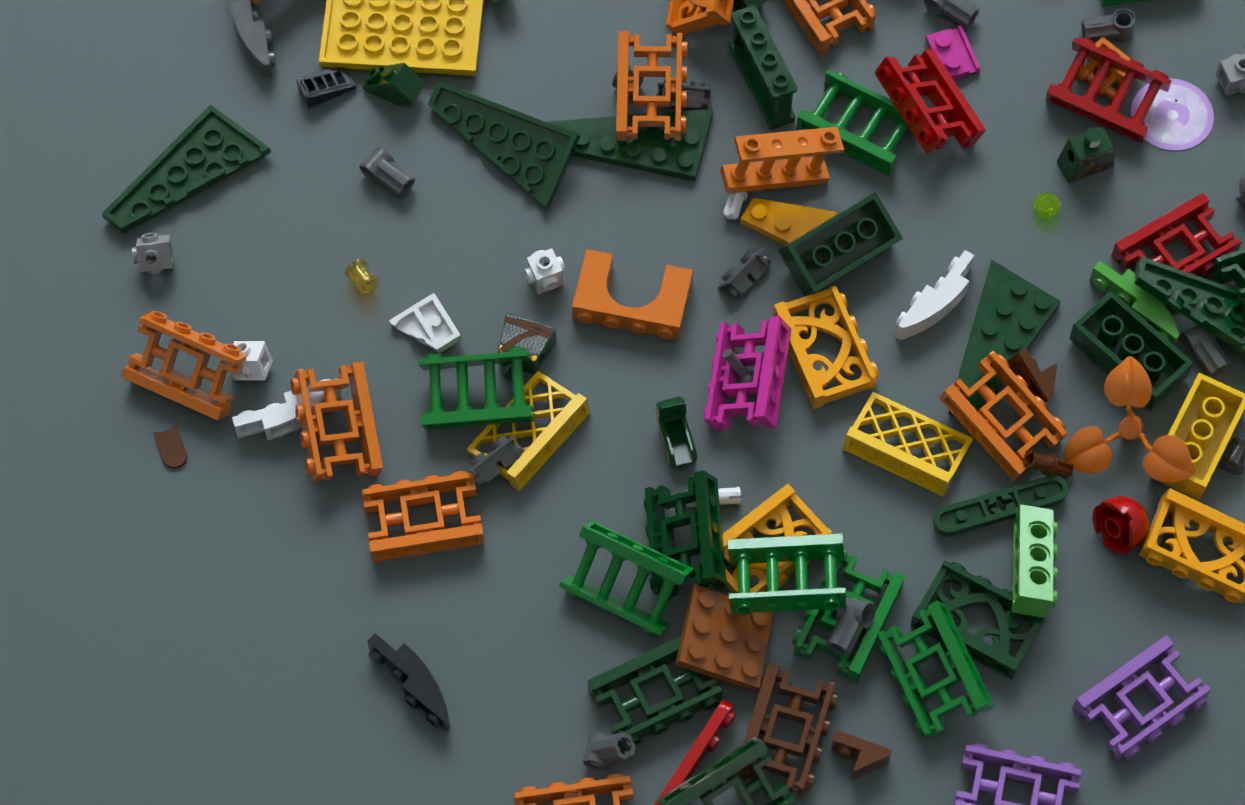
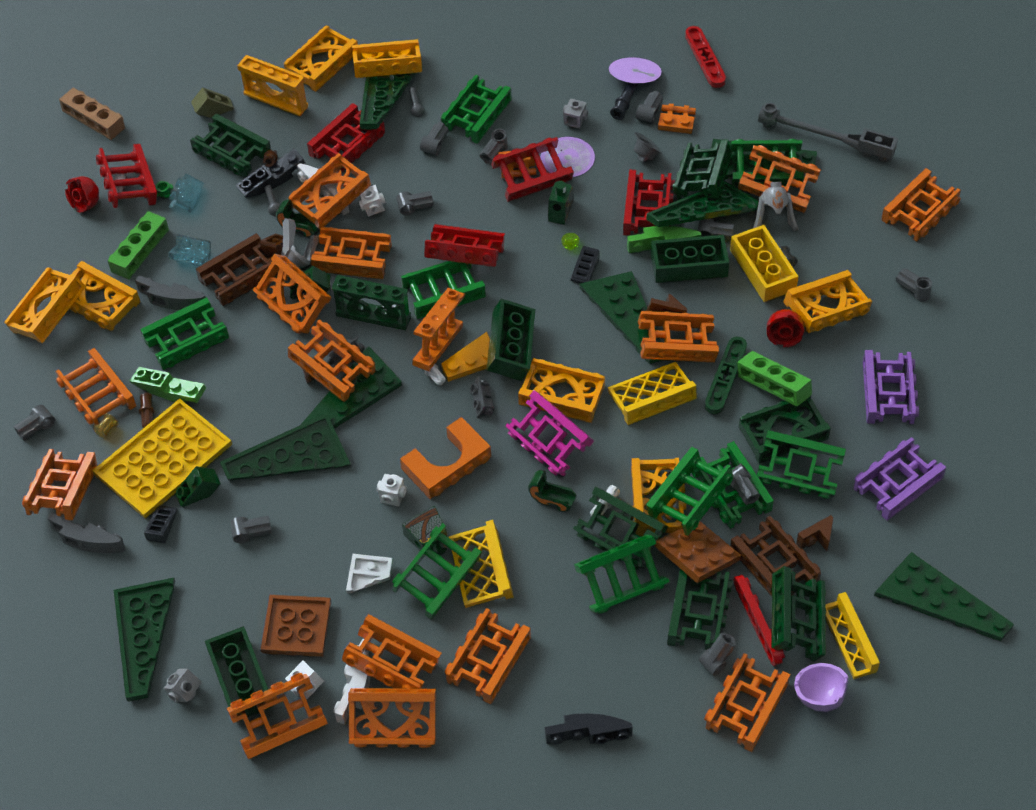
camera: 50 degrees left, 10 degrees down
(171, 447) = (317, 765): reddish brown piece -> none
(211, 286) = (236, 667): none -> dark green brick
(245, 478) = (415, 697): none -> orange fence
(309, 305) = (296, 625): none -> dark orange plate
(362, 276) = (304, 585): clear yellow bush -> none
(485, 465) = (487, 582): dark grey hinge -> none
(745, 375) = (545, 437): dark grey bar -> none
(935, 303) = (580, 322): white slope -> none
(954, 52) = (441, 217): dark pink plate -> none
(1037, 252) = (589, 255): none -> black slope
(1048, 464) = (722, 336): reddish brown axle -> none
(1129, 386) = (718, 266): orange plant -> none

